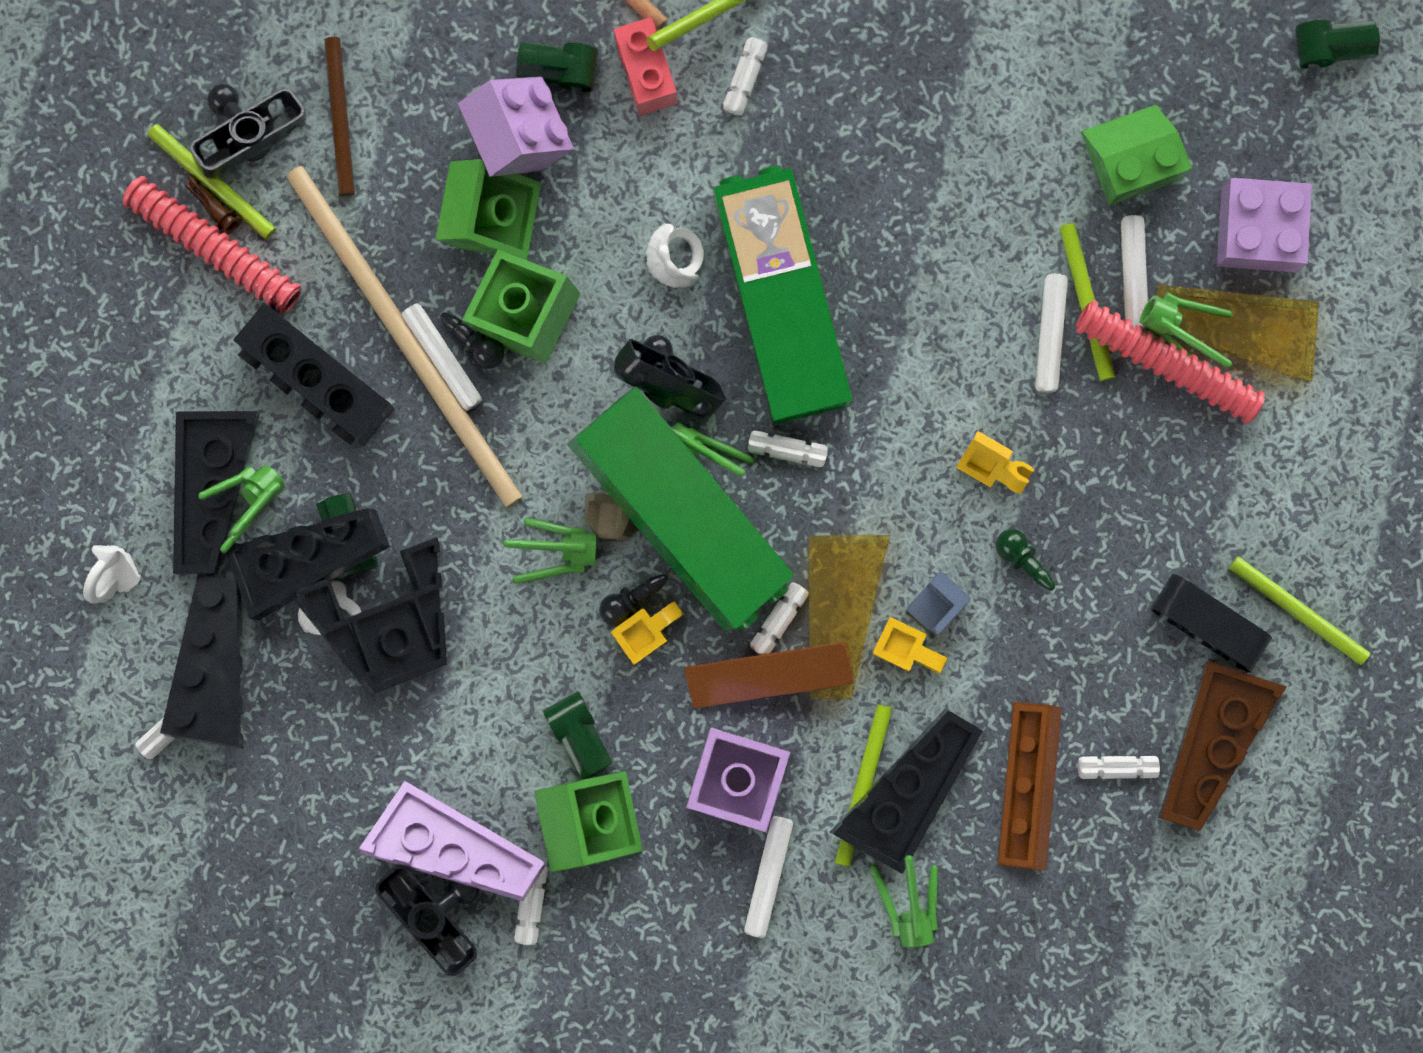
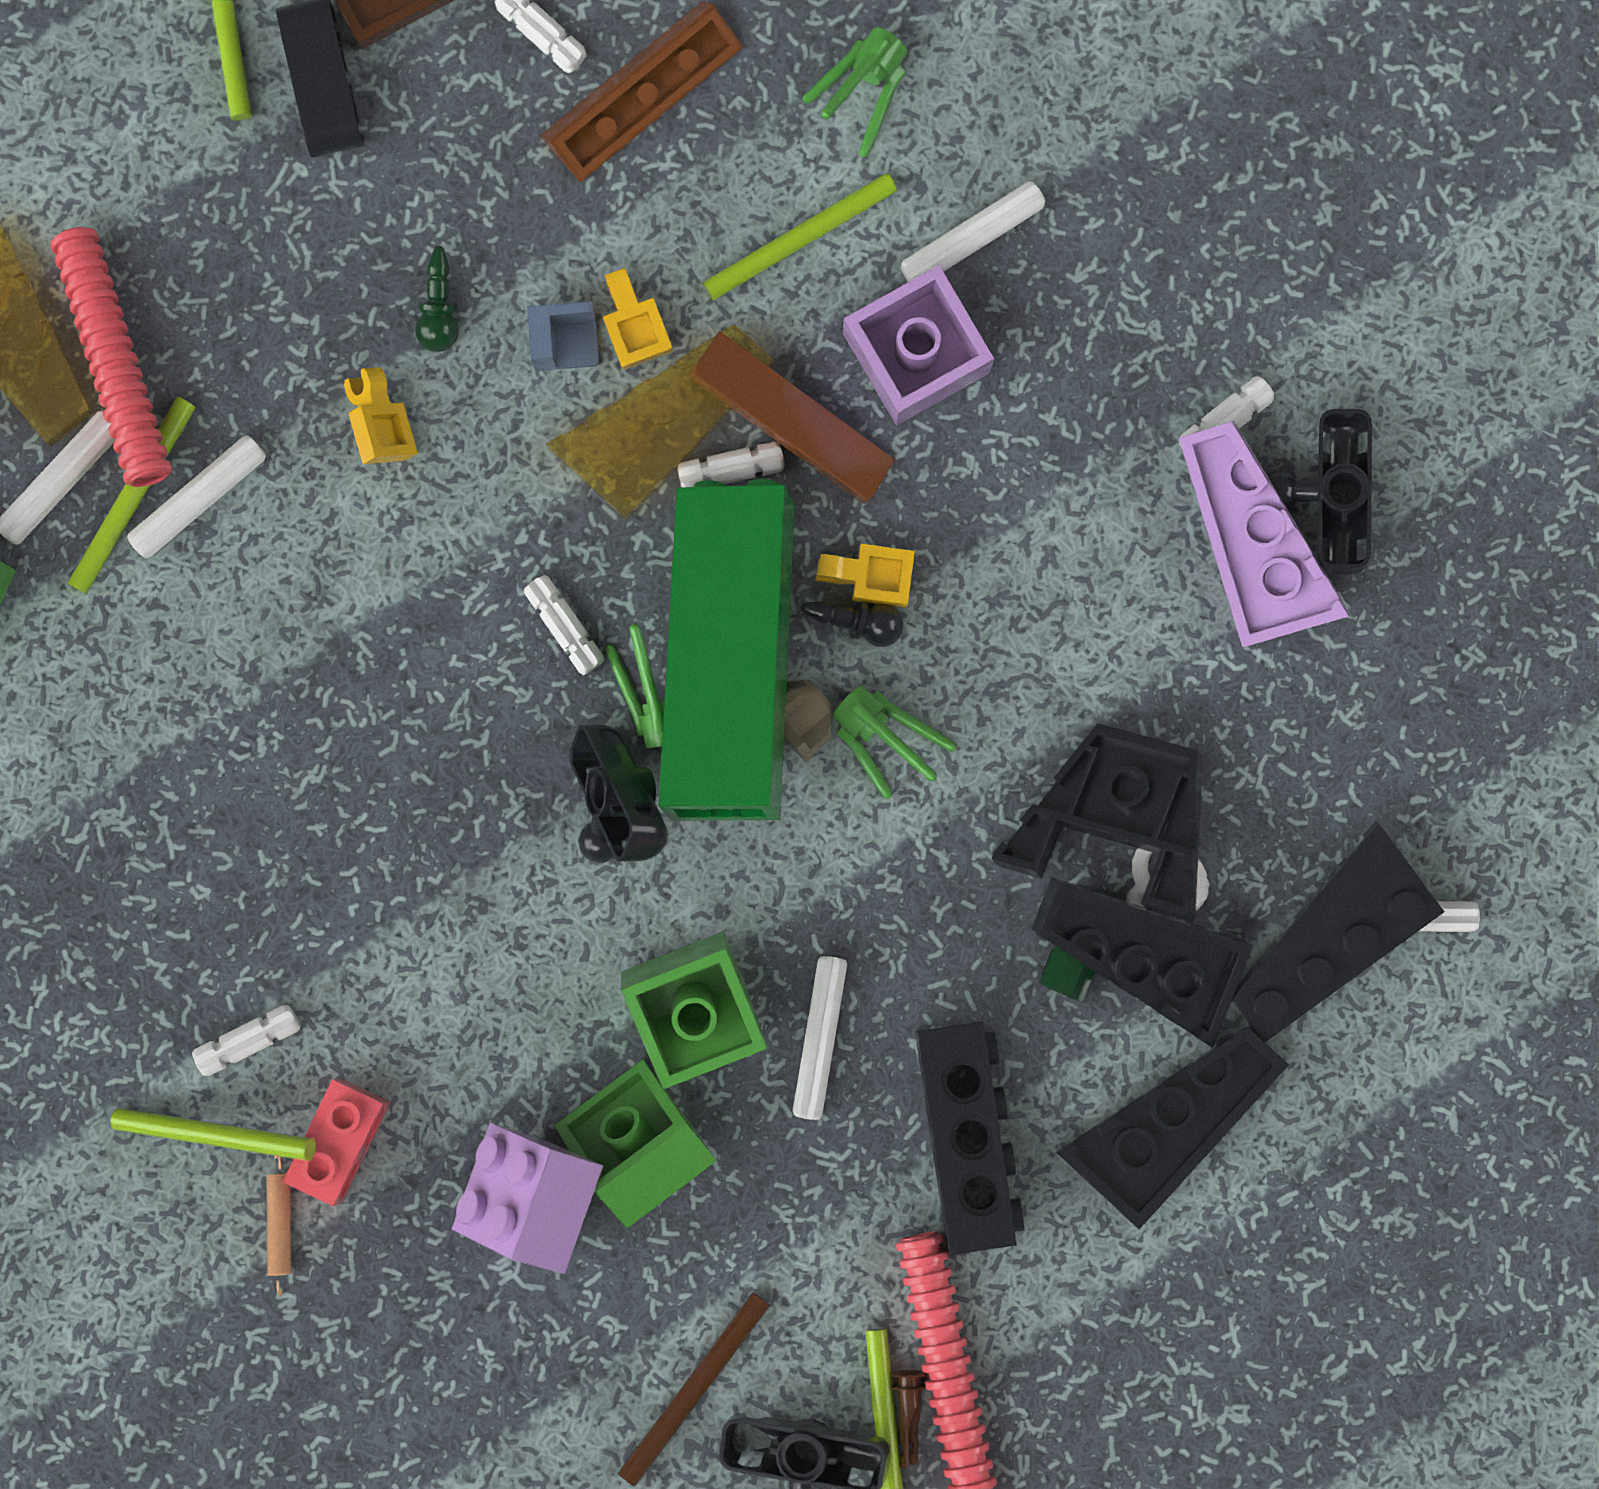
camera: 135 degrees left, 0 degrees up
(110, 574) = (1345, 1122): white piece -> none
(258, 490) = (1128, 1067): bright green plant -> none
(404, 336) = (837, 1099): tan piece -> none
(485, 350) = (771, 1001): black bar -> none
(567, 65) = (417, 1222): dark green piece -> none
(576, 730) = (1029, 545): dark green piece -> none
(588, 821) = (1099, 442): bright green slope -> none
(659, 258) = (509, 930): white piece -> none
(781, 295) = (423, 780): green brick -> none
(906, 798) = (769, 183): black wing -> none
(1163, 319) = (74, 397): bright green plant -> none

